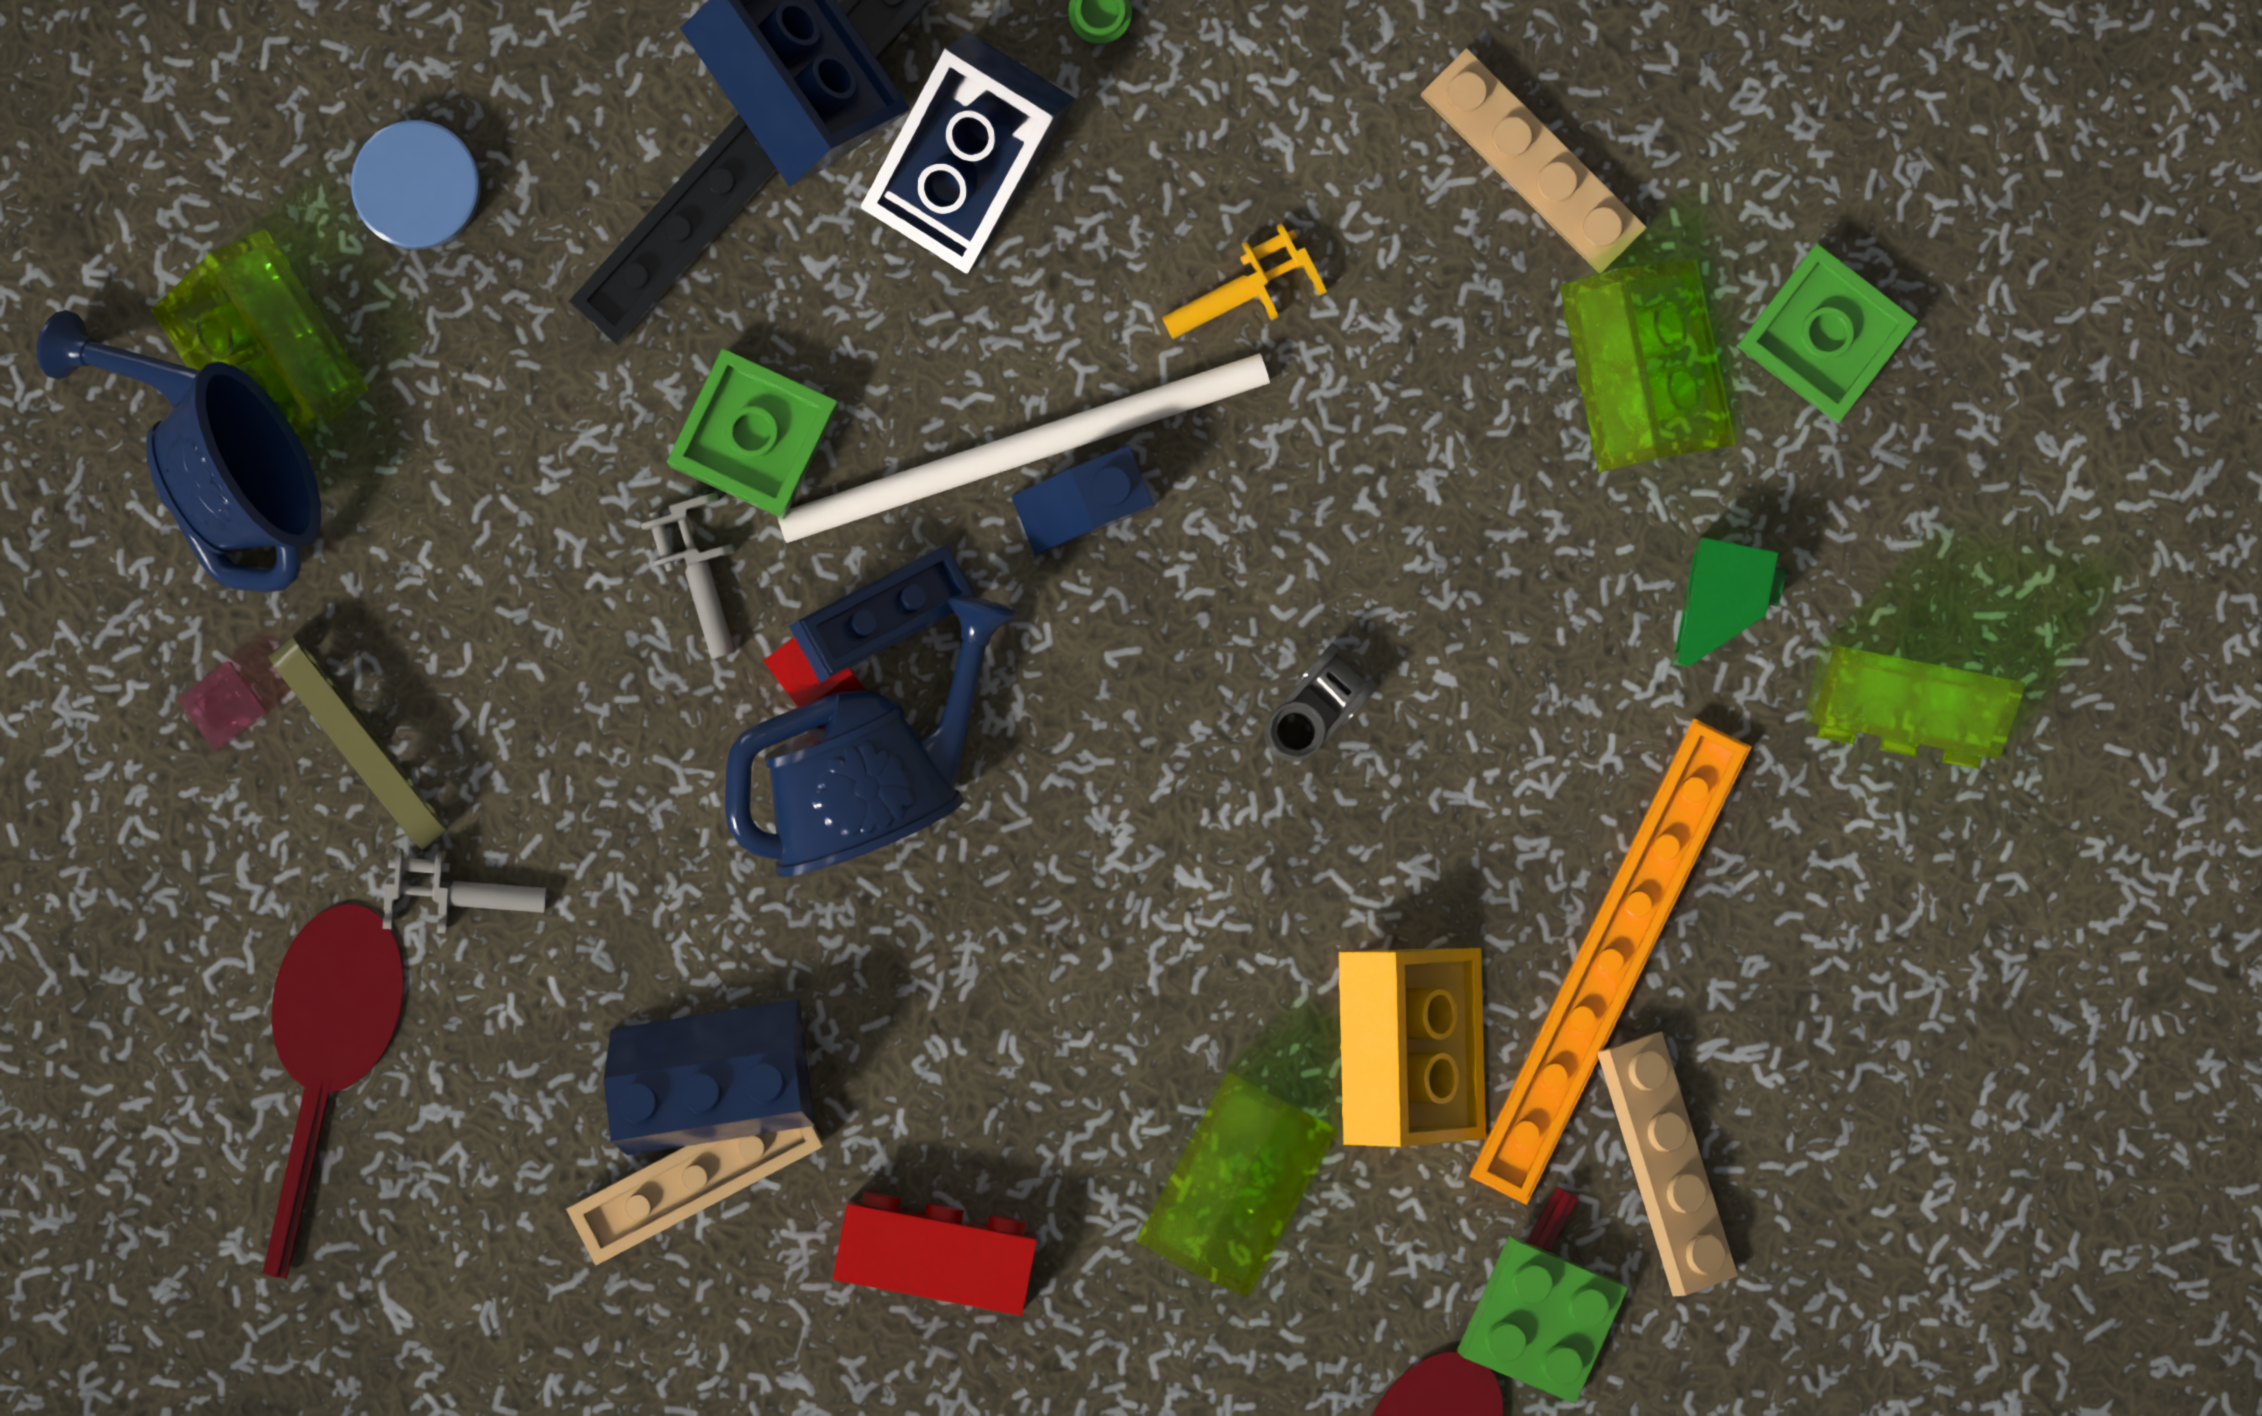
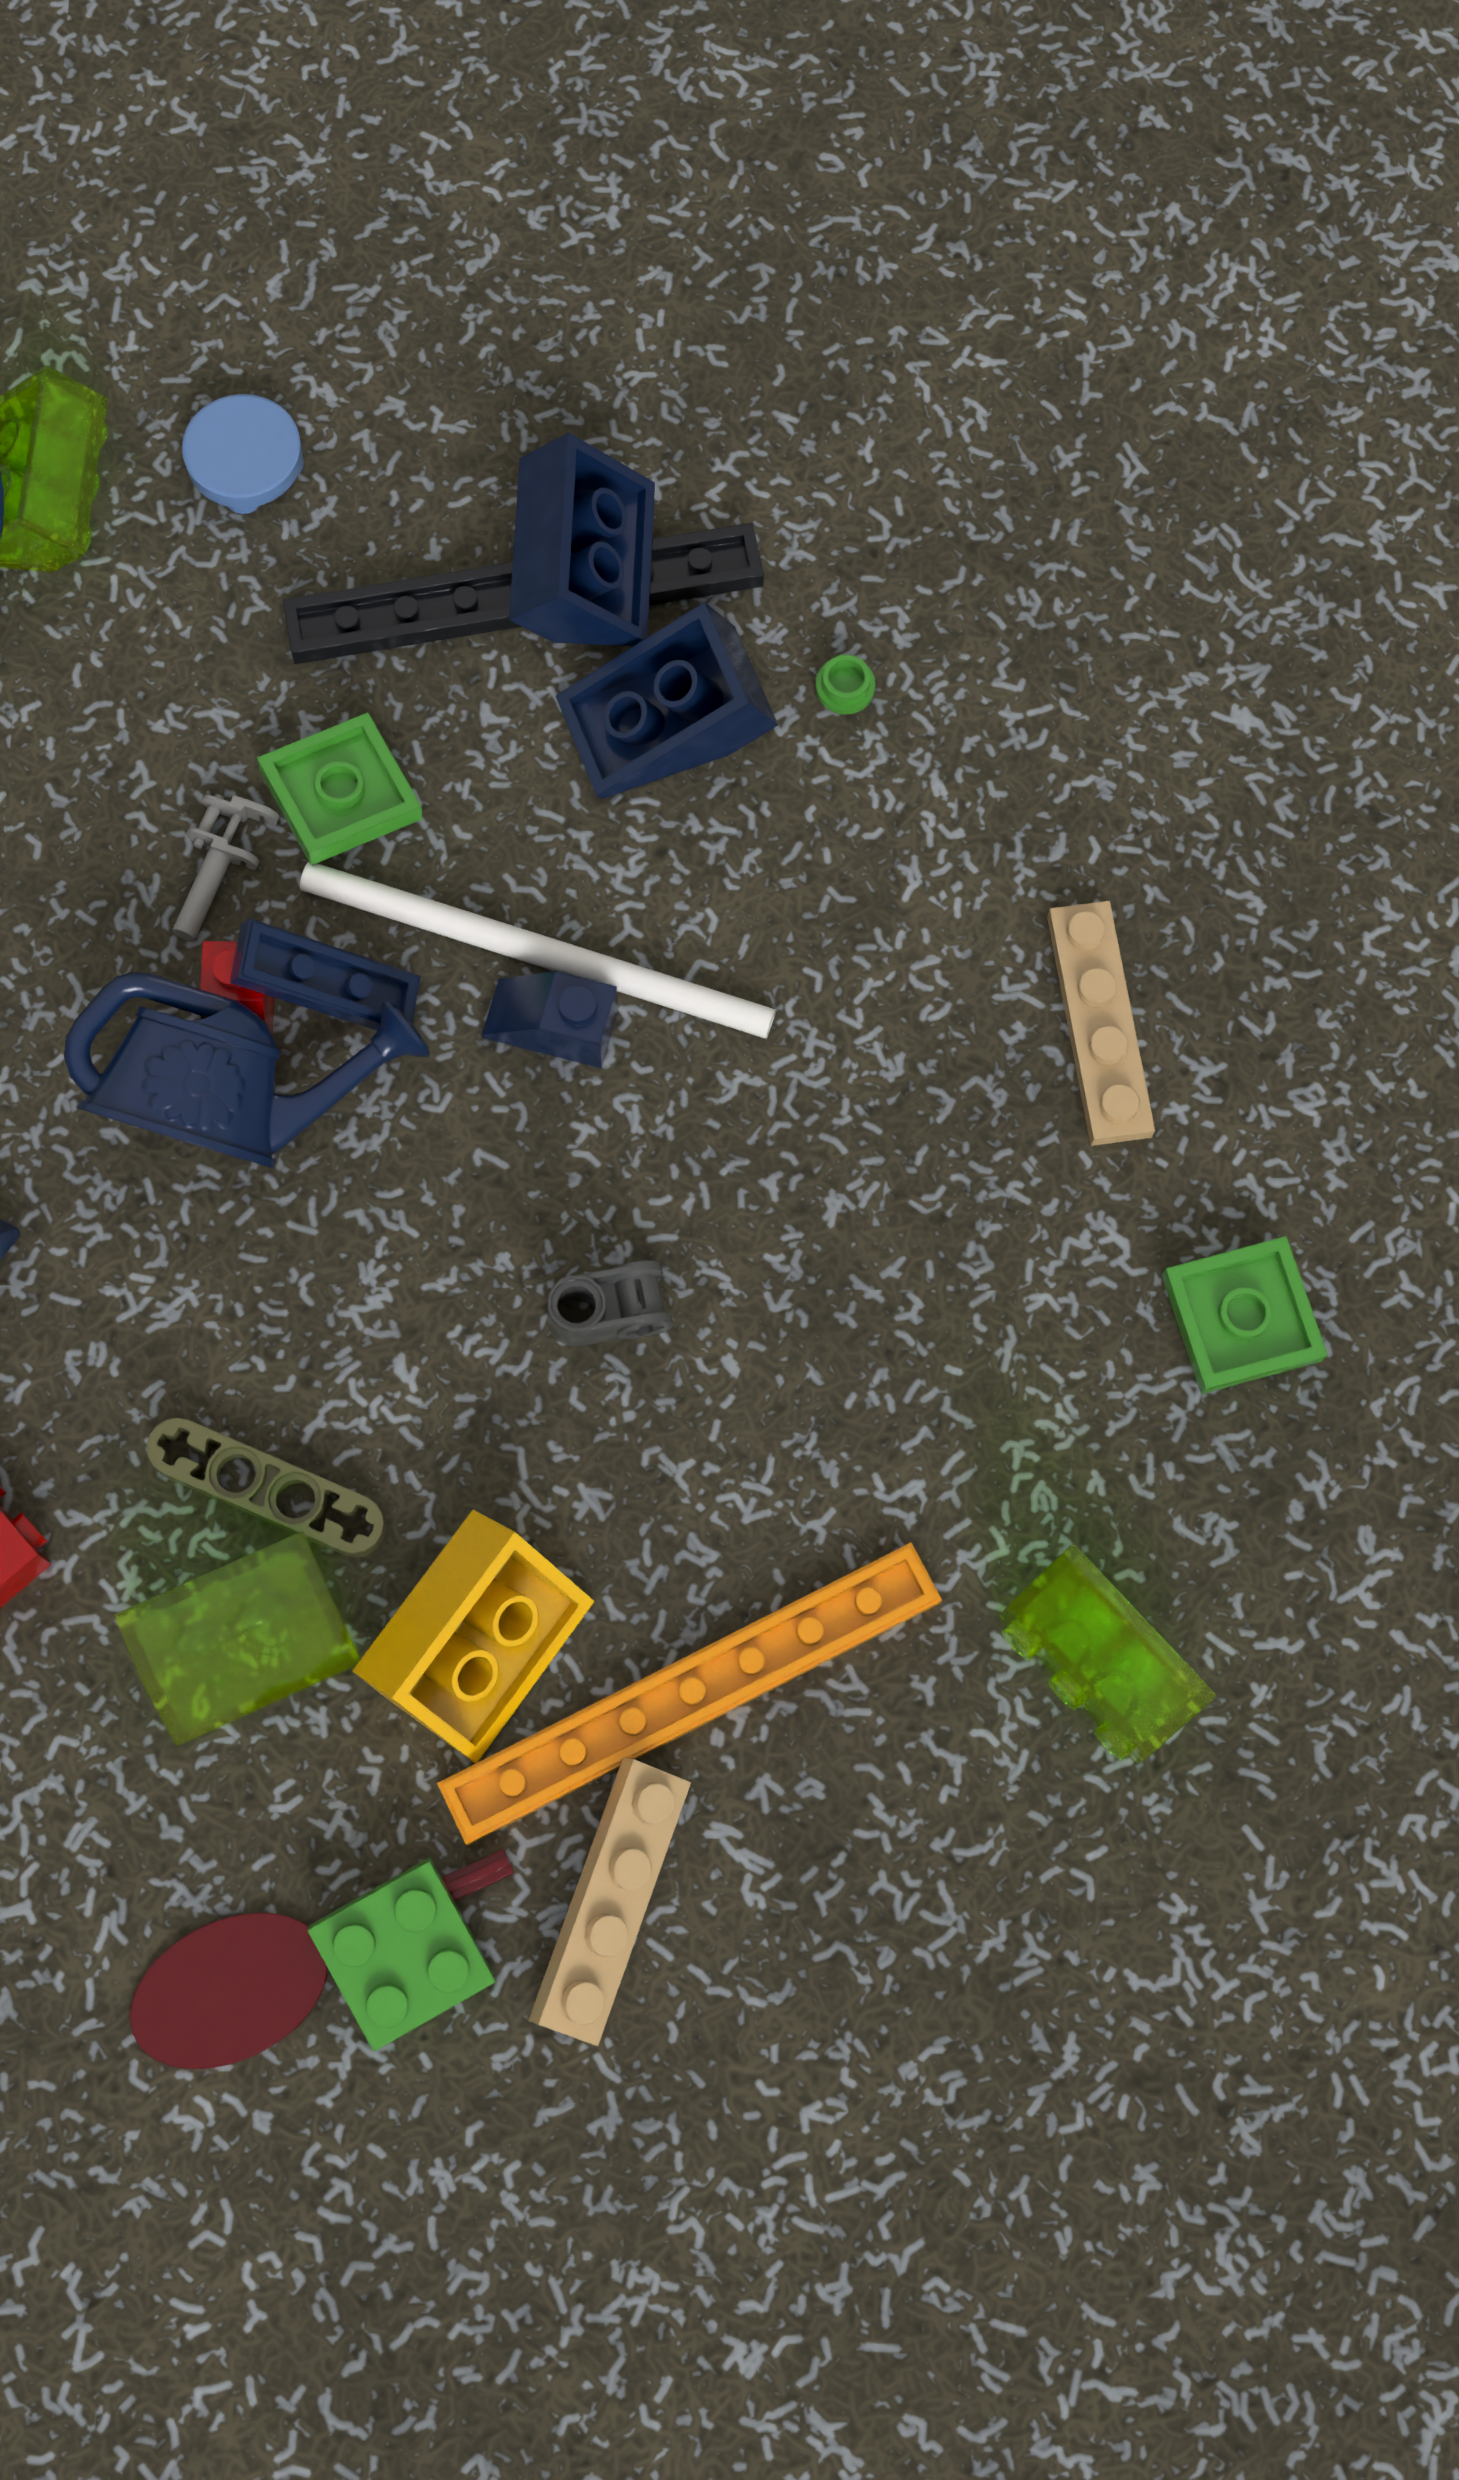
camera: 35 degrees right, 15 degrees down
(1157, 1044) = (269, 1482): none -> olive beam
(1244, 287) = (801, 954): yellow piece -> none
(1647, 364) = (1078, 1232): clear neon green slope -> none
(1725, 596) = (1008, 1460): green slope -> none

